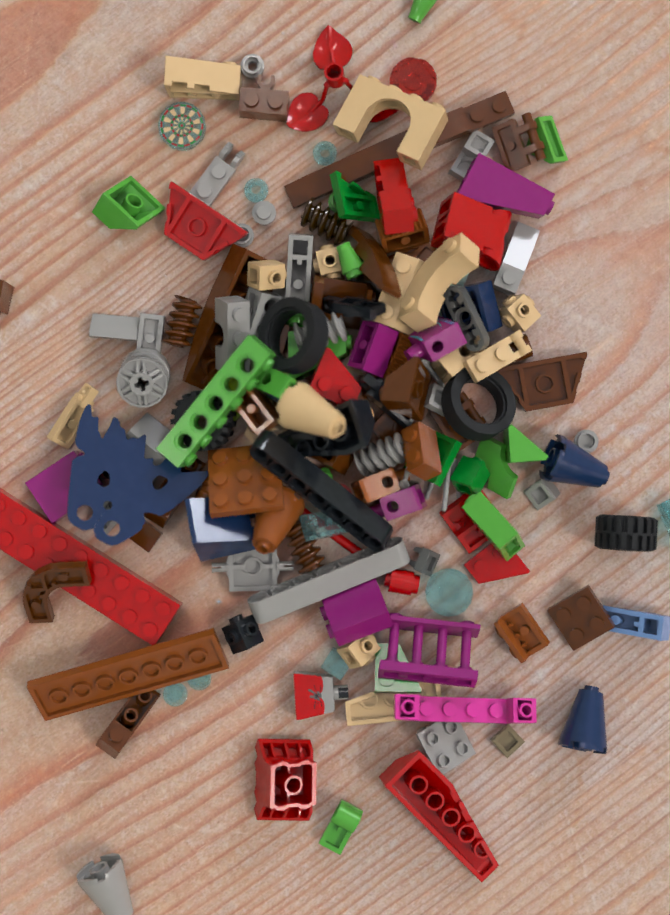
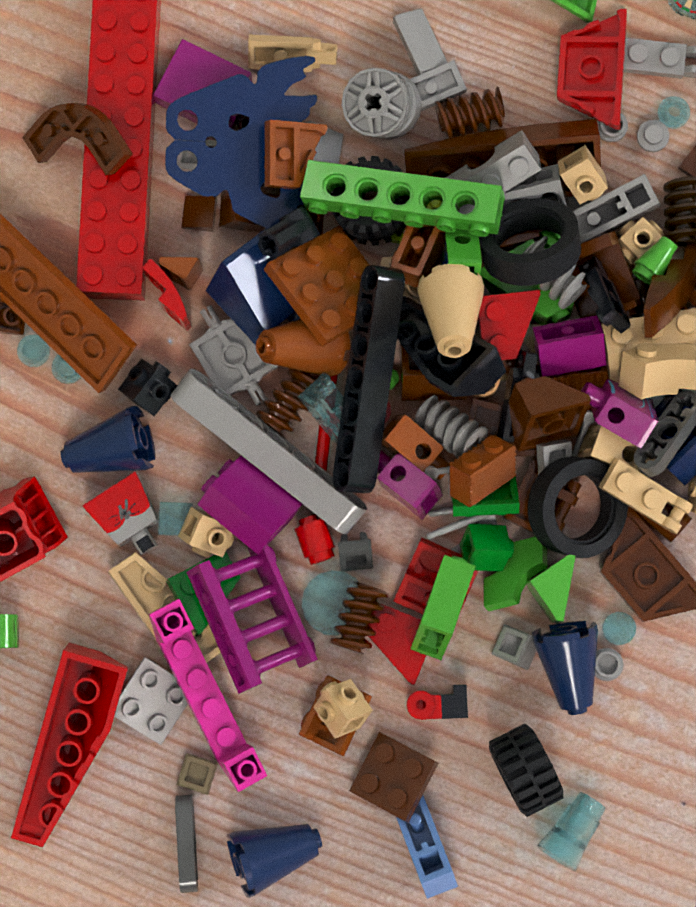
camera: 65 degrees right, 5 degrees down
(142, 457) = (288, 151): none -> dark orange wing
(180, 569) = (182, 270): none -> dark orange slope
(195, 587) = (170, 299): none -> red slope
(196, 483) = (290, 232): none -> black piece
(267, 678) = (112, 445): none -> dark blue cone
(469, 582) = (359, 617): none -> reddish brown piece
(521, 627) = (342, 707): none -> tan brick
(548, 772) = (186, 843): none -> dark grey beam
(552, 564) = (426, 706): none -> leg
(567, 420) = (619, 628): none -> clear light blue tile

